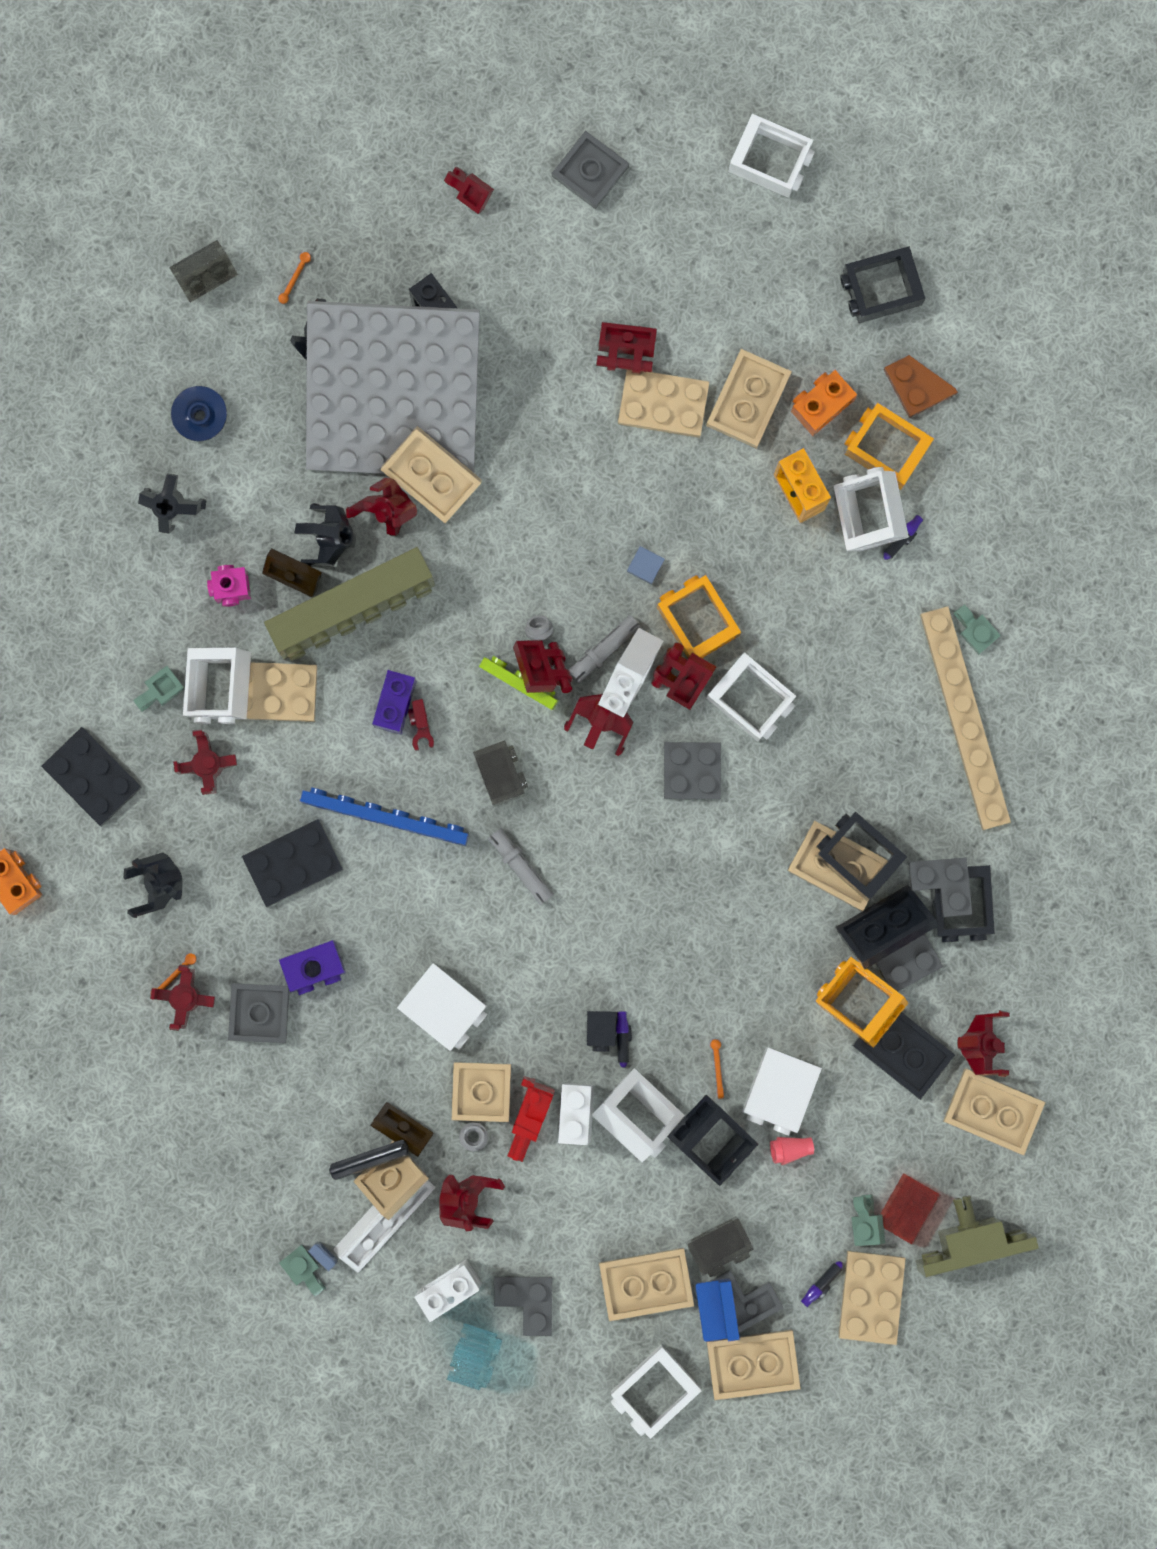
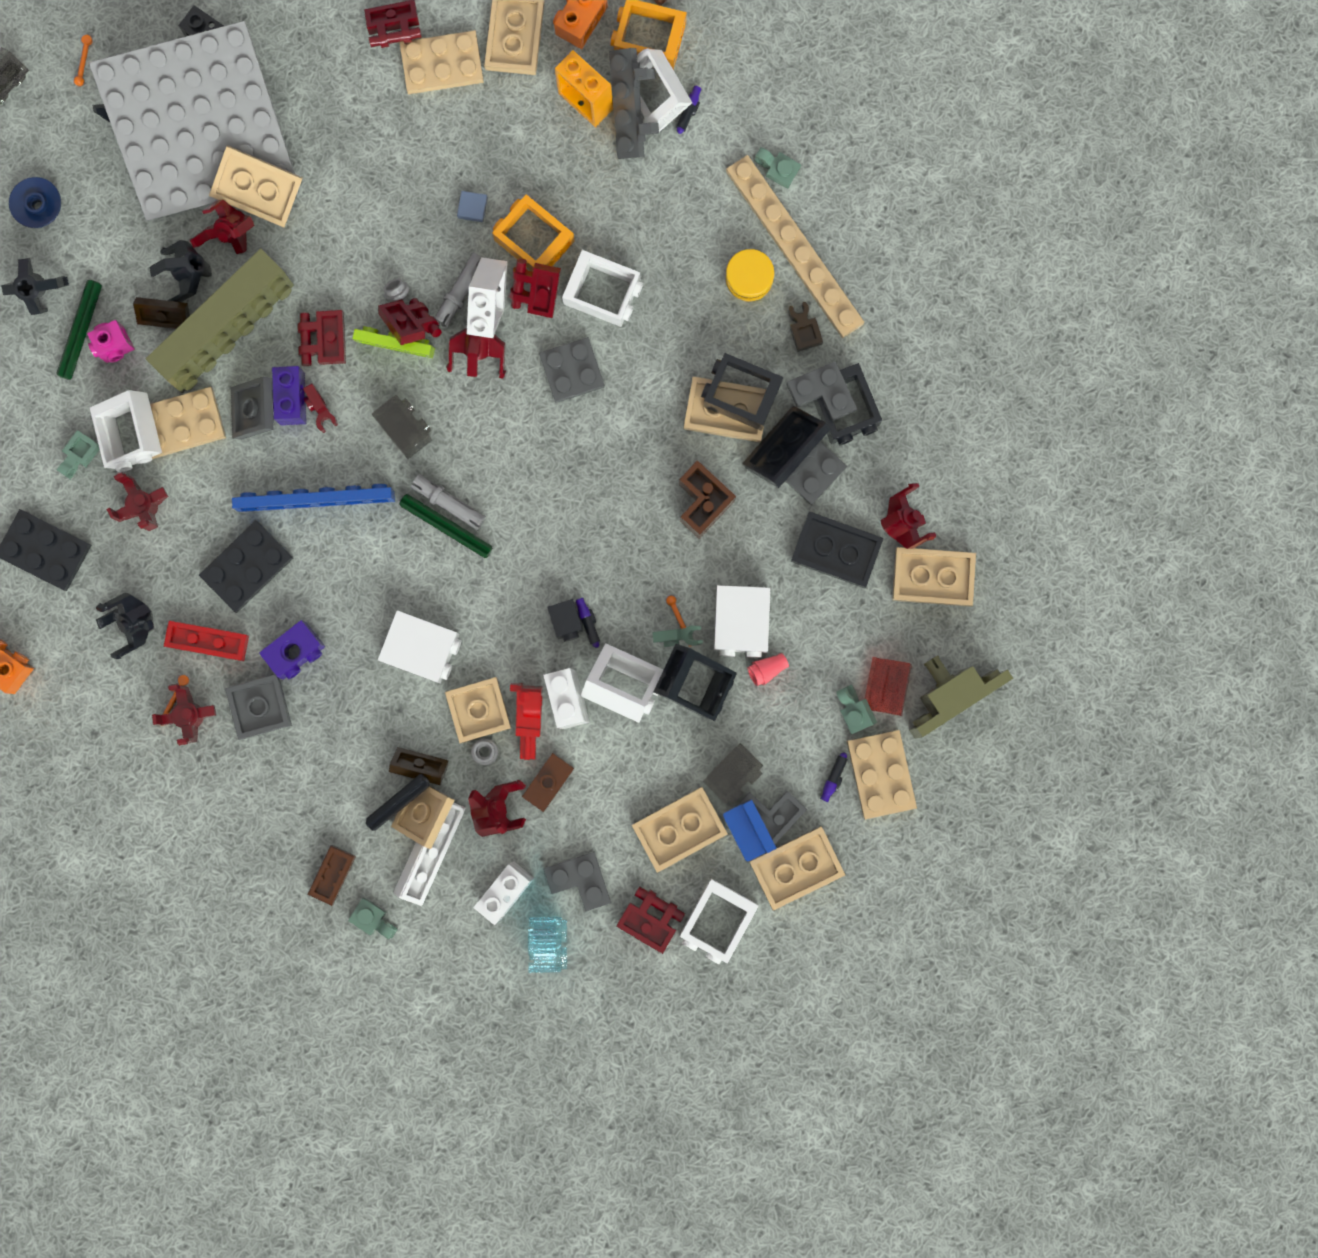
camera: 15 degrees left, 0 degrees up
(201, 559) = (79, 329): none -> dark green axle
(227, 927) = (206, 640): none -> red plate
(277, 1210) = (331, 875): none -> reddish brown plate
(323, 1256) = (385, 901): sand blue tile -> none
(352, 703) = (252, 408): none -> dark grey plate
(455, 653) = (330, 338): none -> dark red plate
(510, 889) = (445, 525): none -> dark green axle
(528, 1190) = (548, 782): none -> reddish brown plate
(580, 1373) = (646, 927): none -> dark red plate
(704, 1084) = (672, 637): none -> sand green plate
(791, 954) = (710, 498): none -> reddish brown brick
(846, 496) = (626, 103): none -> dark grey hinge
(884, 1017) = (810, 525): light orange window -> none
(908, 733) = (749, 275): none -> yellow head
(946, 812) = (805, 330): none -> dark brown plate

